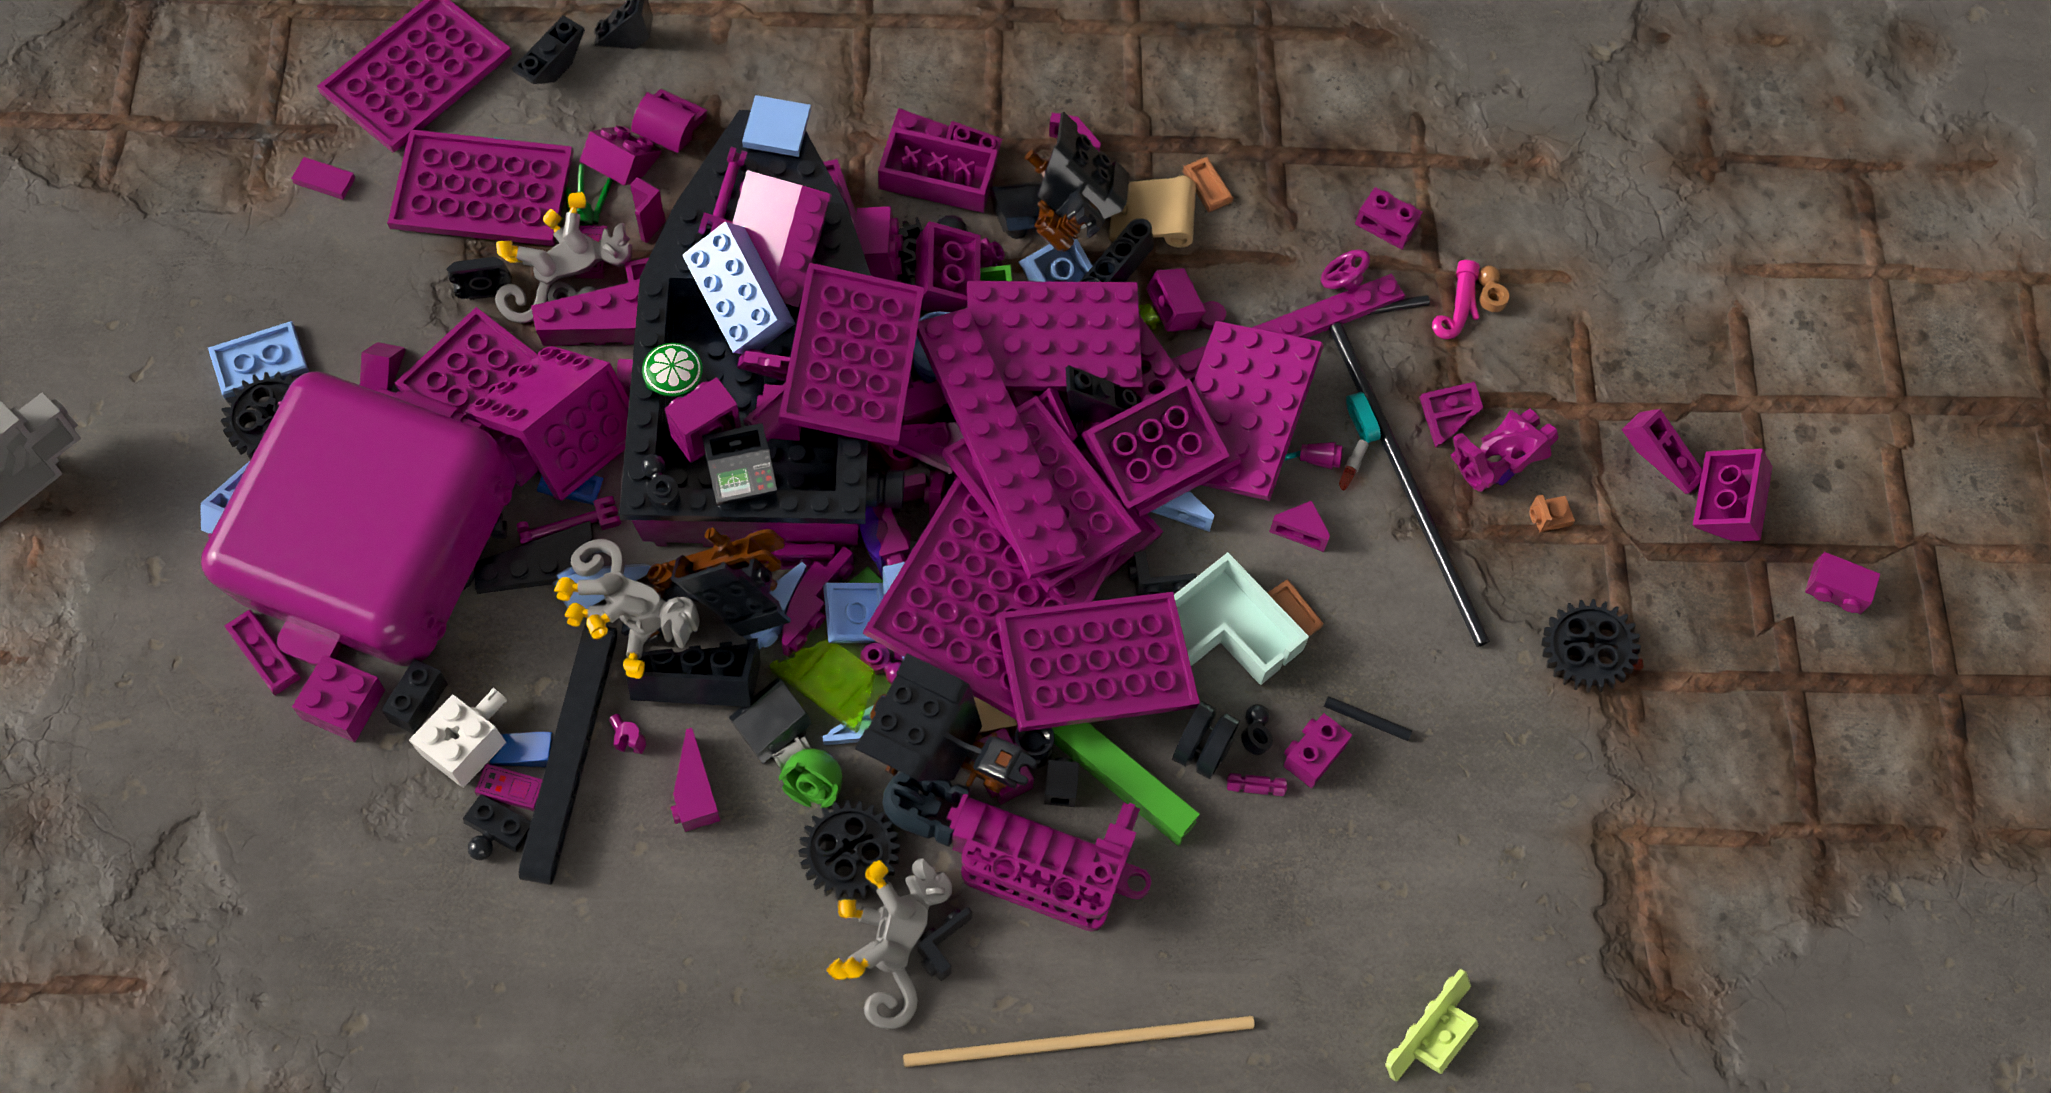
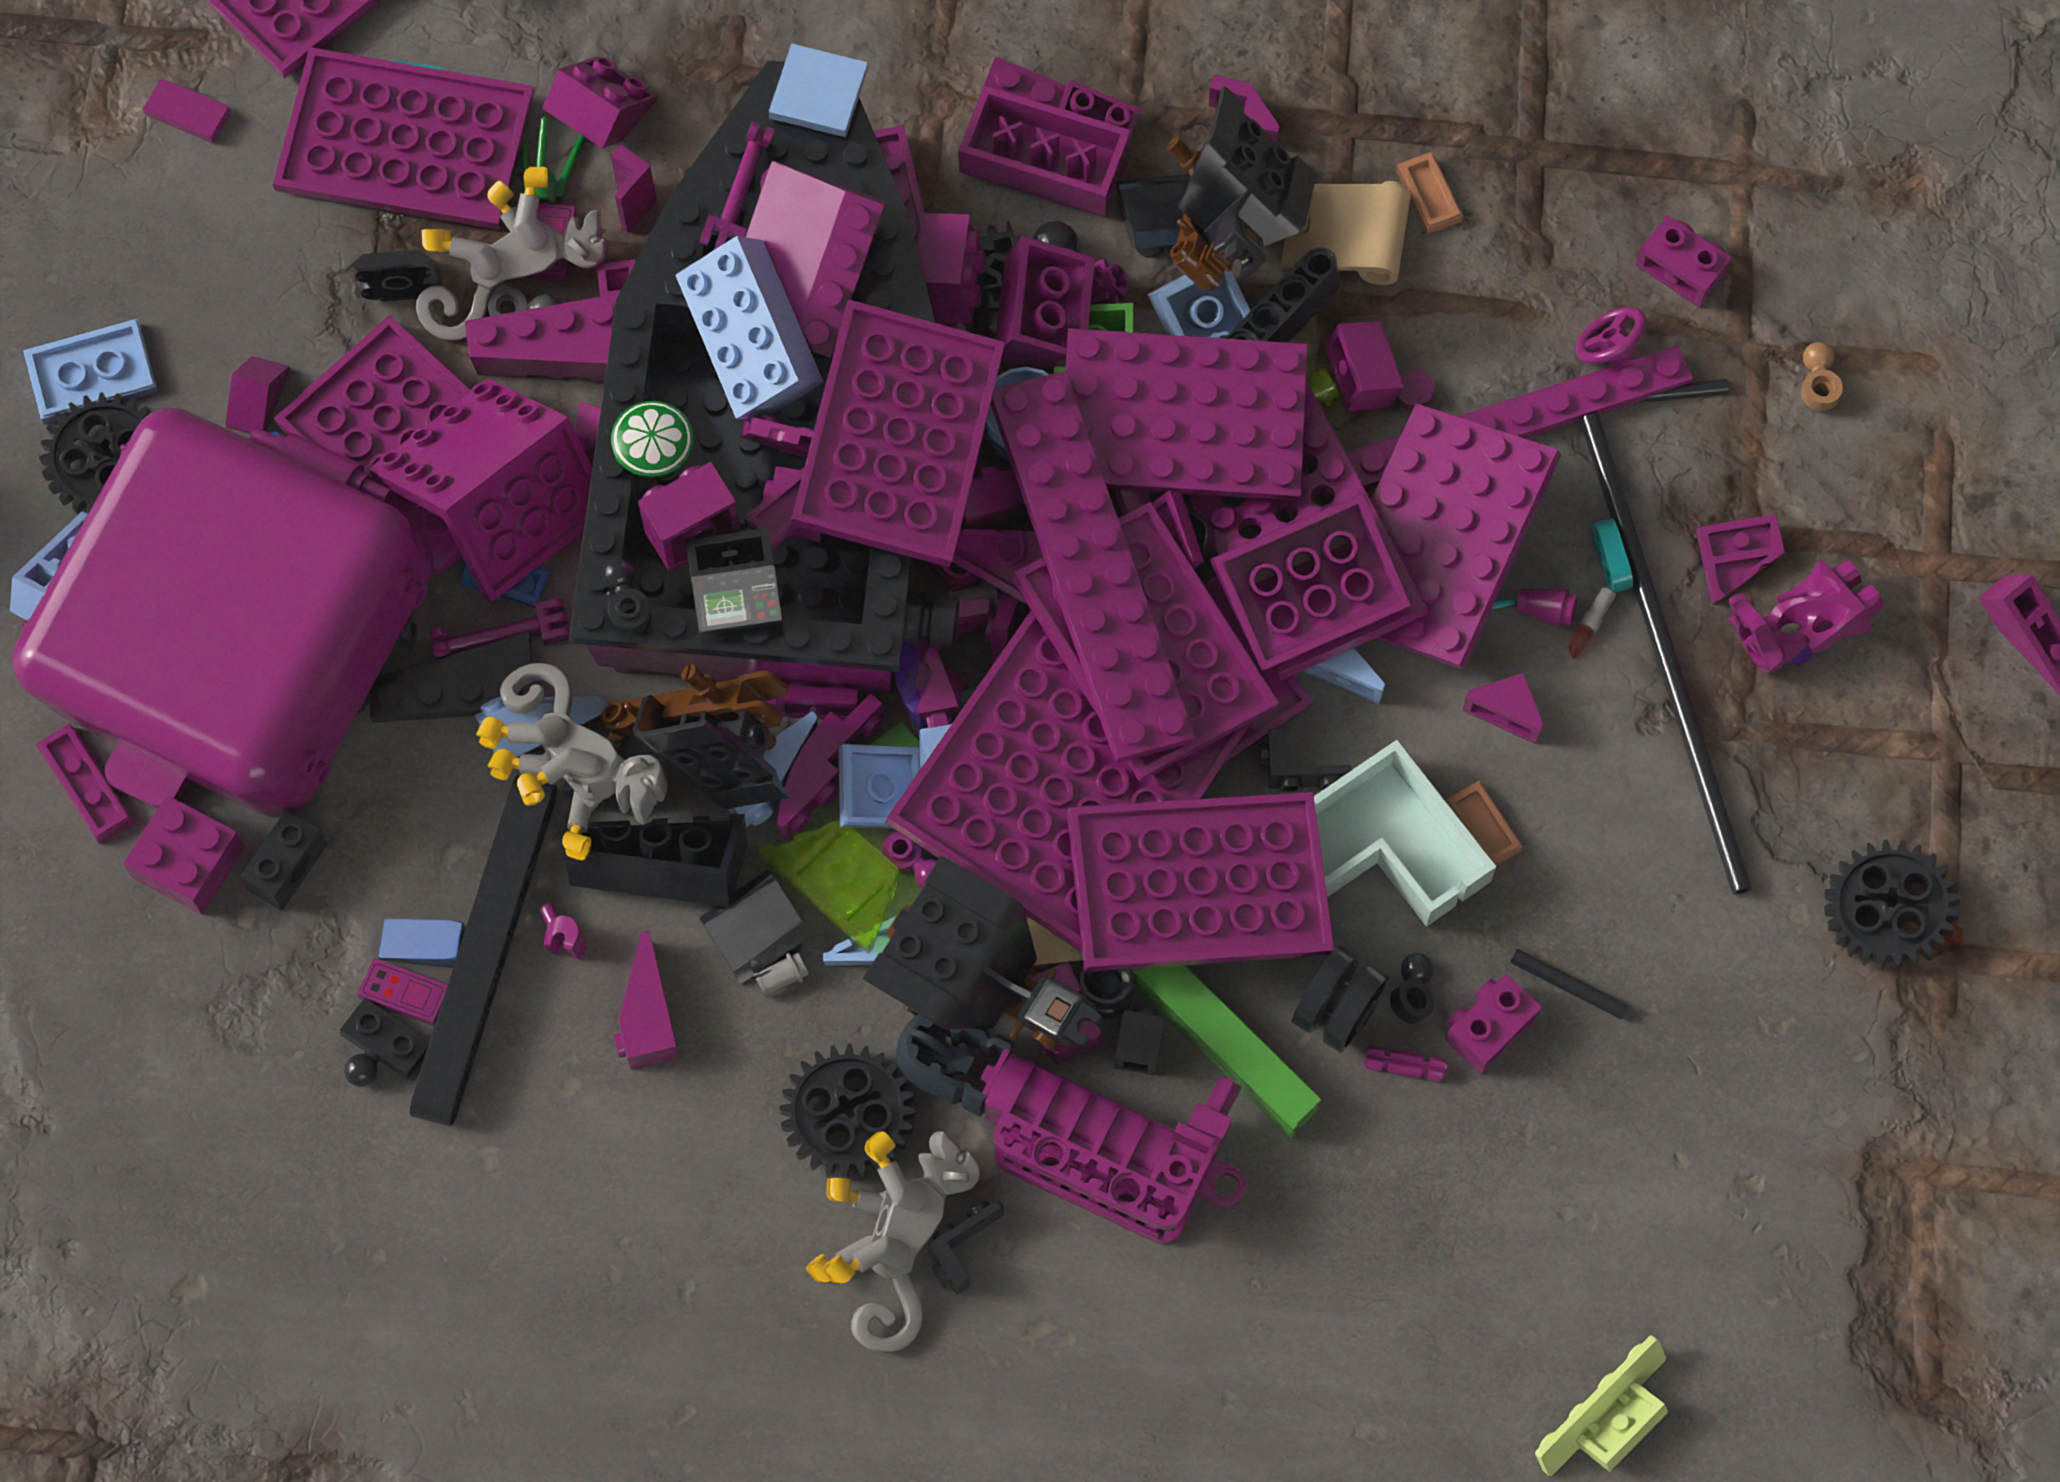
camera: 10 degrees right, 5 degrees up
(461, 737) = (343, 920): white brick -> none
(667, 119) = (669, 52): magenta brick -> none
(812, 777) = (805, 1009): bright green cylinder -> none
(1078, 1041) = (1132, 1388): tan piece -> none
(1096, 397) = (1234, 507): black slope -> none
(1467, 274) = (1780, 390): dark pink plant -> none
(1551, 513) = (1862, 711): nougat bracket -> none

